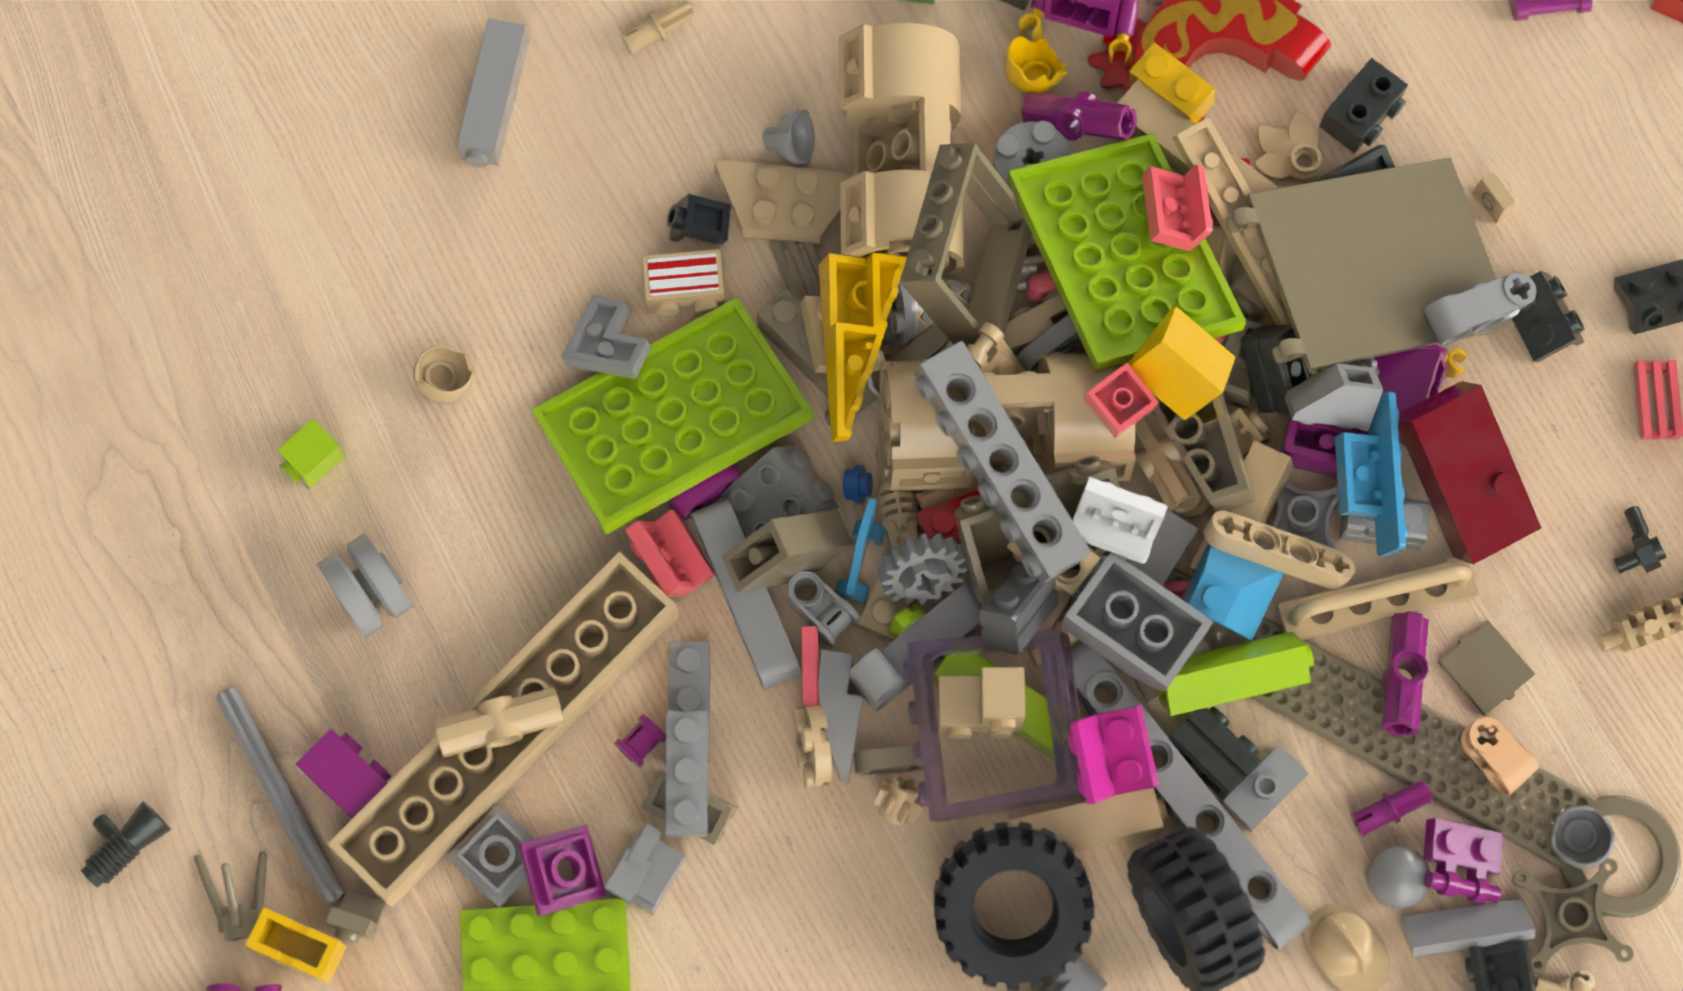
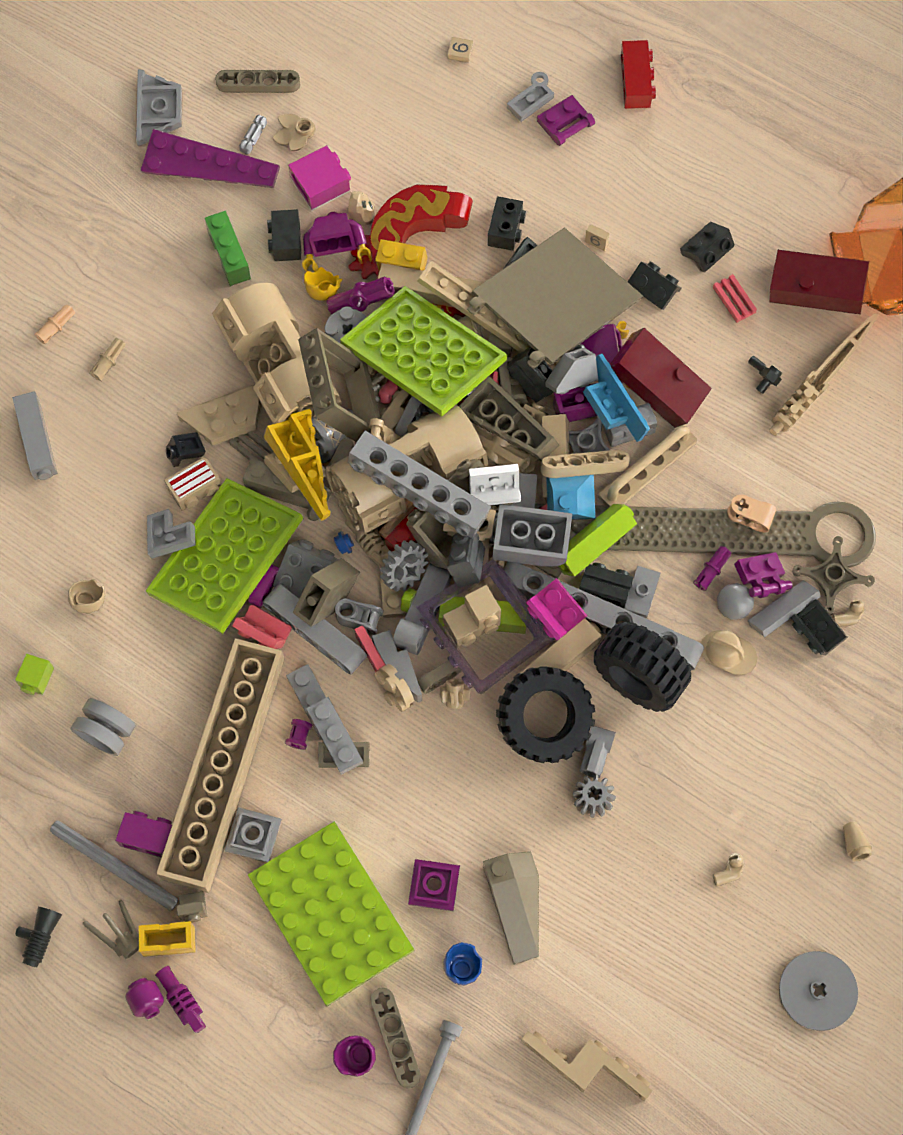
camera: 25 degrees left, 5 degrees down
(499, 722) = (218, 758): tan piece -> none
(541, 862) = (279, 823): magenta piece -> none
(646, 871) = (338, 800): light grey piece -> none
(792, 137) = (211, 381): light grey piece -> none
(863, 532) = (366, 563): dark azure flag -> none
(1121, 400) = (464, 423): coral piece -> none
(1177, 207) = (439, 313): coral bracket -> none
(1182, 364) = (485, 391): yellow slope -> none
(1286, 146) = (476, 264): tan plate -> none
(1403, 694) = (686, 506): magenta piece -> none
(1479, 307) = (620, 292): light grey piece -> none
(1486, 668) = (721, 474): dark tan piece -> none
(1582, 837) = (817, 532): light grey hair -> none

